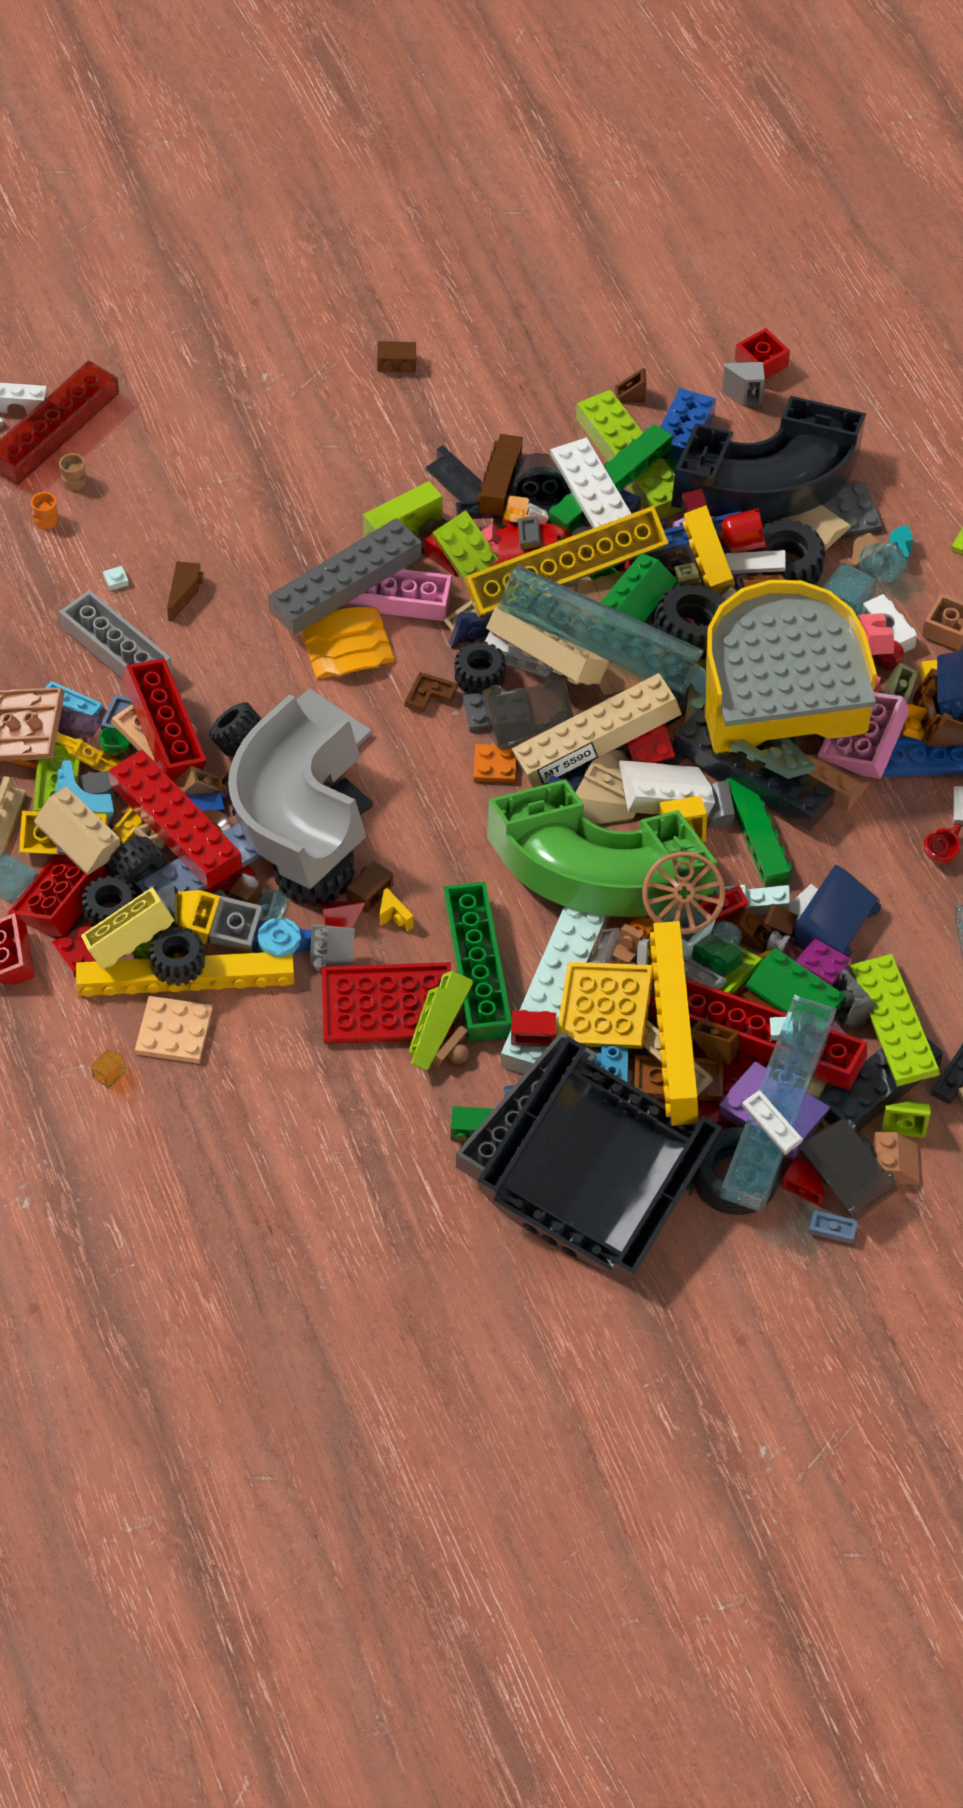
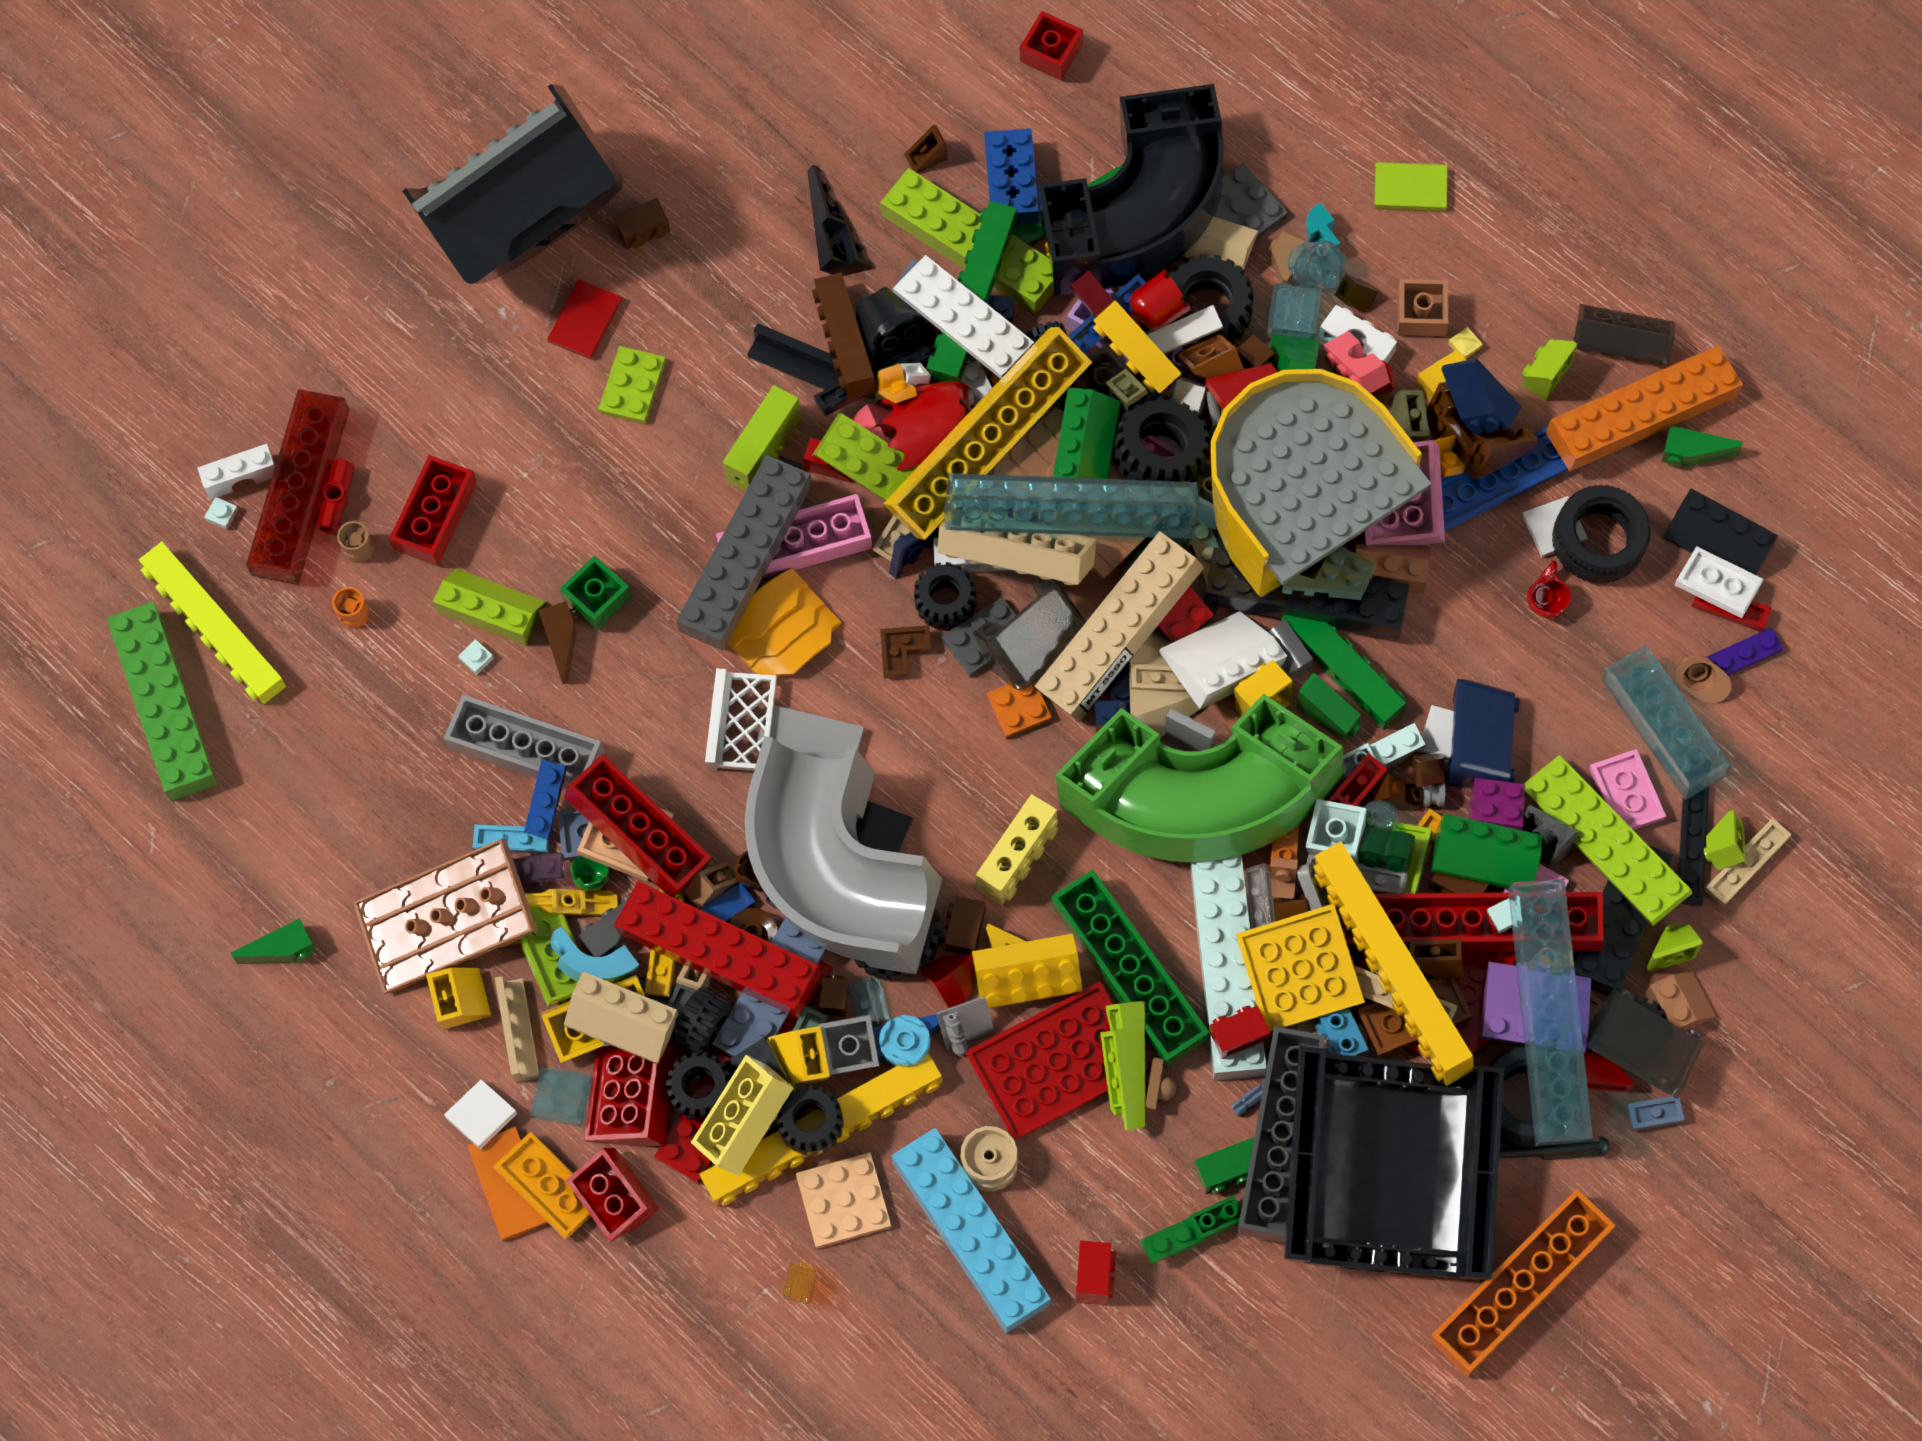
camera: 20 degrees left, 15 degrees up
(77, 438) = (332, 509): none -> red piece
(108, 679) = (545, 799): none -> blue plate
(139, 473) = (433, 510): none -> red brick
(141, 548) = (488, 606): none -> lime slope
(225, 568) = (595, 592): none -> green brick
(233, 727) = (720, 799): black tyre -> none
(256, 1086) = (970, 1230): none -> medium azure brick
(278, 670) = (720, 714): none -> white fence
(297, 1042) = (994, 1144): none -> tan wheel
(313, 286) = (519, 192): none -> black piece
(320, 401) = (584, 319): none -> red tile
(330, 454) = (632, 385): none -> lime plate
(331, 1149) = (1093, 1274): none -> red brick
(398, 929) = (1028, 970): none -> yellow brick
(419, 1158) = (1192, 1231): none -> green slope
(430, 526) = (801, 433): clear smoke slope -> none
(436, 849) = (1017, 850): none -> light yellow brick
(529, 533) = (926, 411): dark grey tile -> none
(534, 414) = (833, 231): none -> black wedge
(607, 814) = (1187, 733): none -> light grey tile
(660, 1296) = (1522, 1283): none -> orange brick
(688, 886) = (1327, 790): nougat piece -> none
(727, 850) = (1328, 708): none -> green slope
(736, 1220) = (1560, 1151): none -> pearl dark grey bar
(744, 382) = (1051, 92): light grey slope -> none
(772, 1122) = (1559, 1044): white tile -> none
(904, 596) = (1356, 293): none -> dark brown panel
(934, 1000) = (1628, 789): none -> bright pink plate

